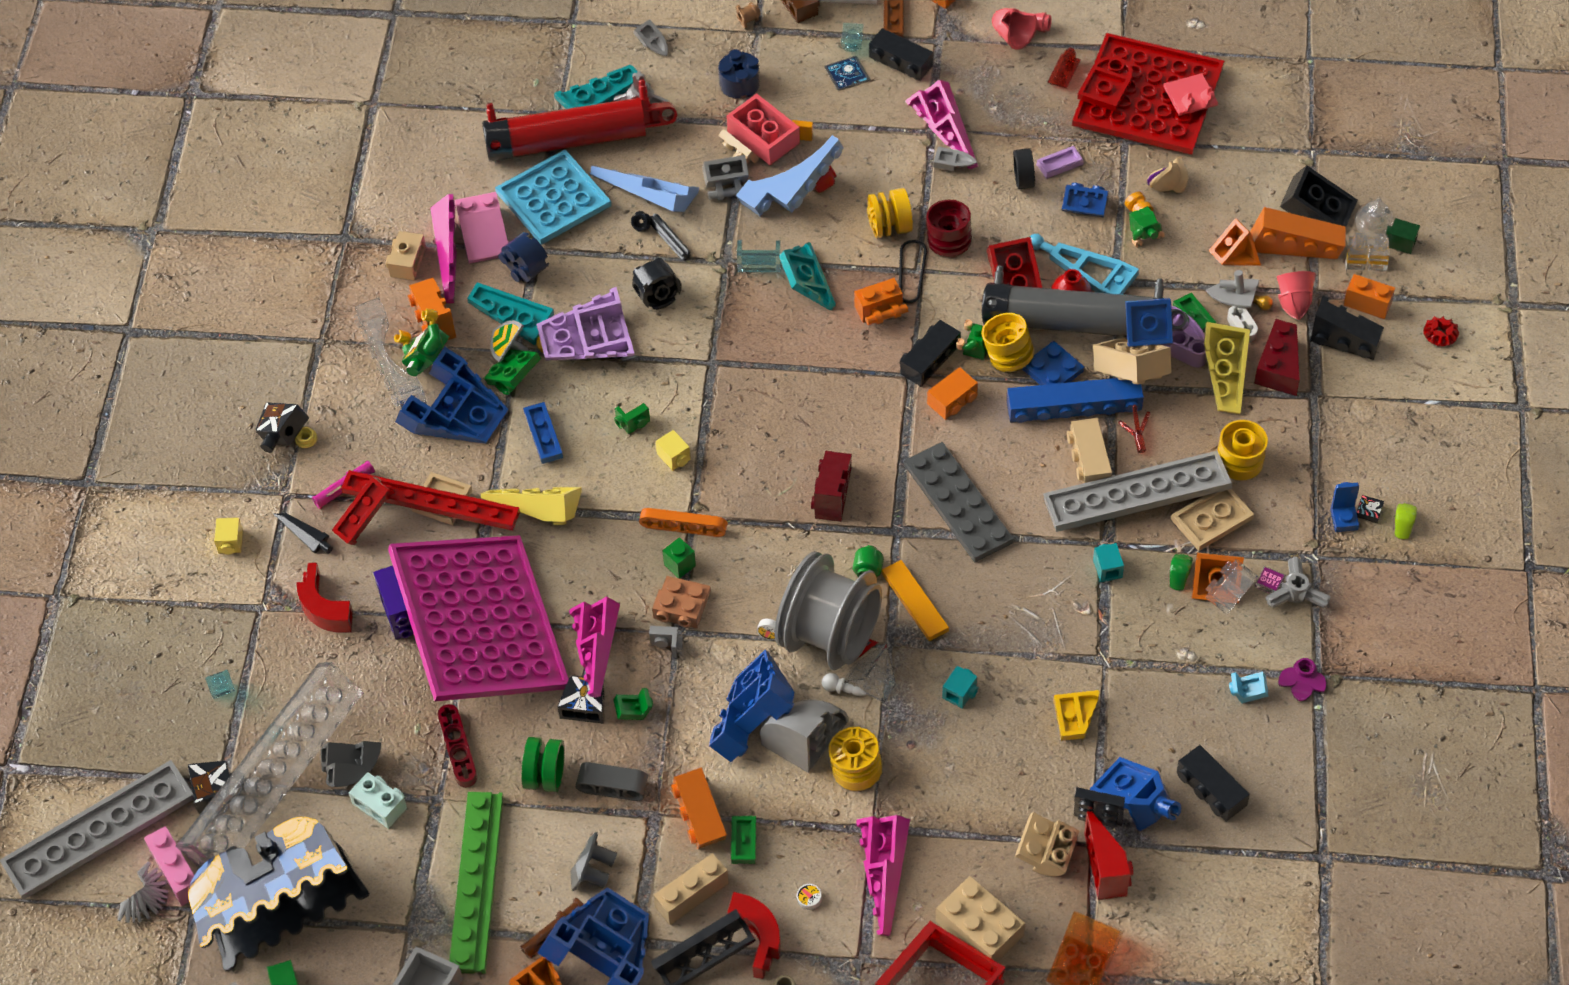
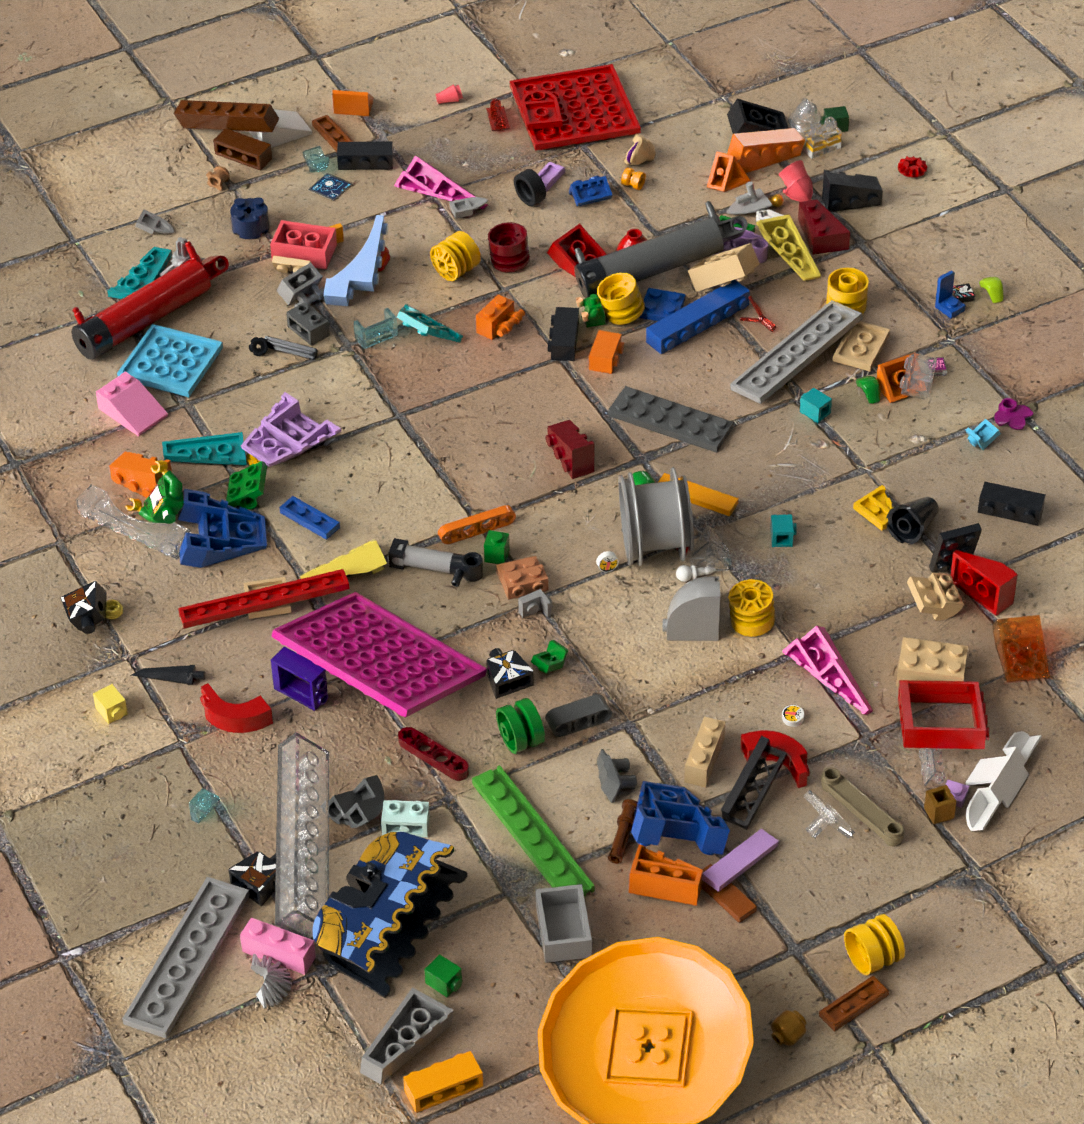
camera: 35 degrees left, 10 degrees down
(321, 498) = (173, 629): dark pink pin -> none
(362, 510) = (215, 629): red container -> none
(406, 255) = (83, 450): tan brick -> none
(444, 227) = (105, 422): dark pink wedge -> none
(504, 338) = (222, 467): shield -> none
(524, 257) = (189, 406): dark blue brick -> none
(592, 520) = (466, 566): none -> piece
(595, 633) = (478, 624): dark pink wedge -> none
(633, 419) = (372, 479): green bracket -> none
(656, 284) = (313, 378): black brick -> none
(661, 192) = (260, 320): light blue wedge -> none
(673, 450) = (426, 482): light yellow brick -> none
(698, 808) = (662, 696): orange wedge -> none
(703, 219) = (308, 323): none -> dark grey brick
(743, 840) = (713, 702): green plate -> none
(753, 697) = (642, 603): blue wedge -> none
(922, 268) = (504, 283): black piece -> none
(1015, 26) = (436, 102): coral helmet -> none
(1089, 450) = (738, 342): tan brick -> none
(1095, 746) = (911, 519): none -> black cone
(1116, 282) = (660, 226): medium azure plate -> none
(1143, 792) = (989, 534): blue plate -> none
(1144, 225) = (649, 187): green piece -> none
(1149, 322) = (723, 232): blue plate -> none
(1190, 94) = (611, 92): coral plate -> none
(1297, 588) = (960, 360): light grey bush -> none
(1369, 296) = (848, 161): orange brick -> none

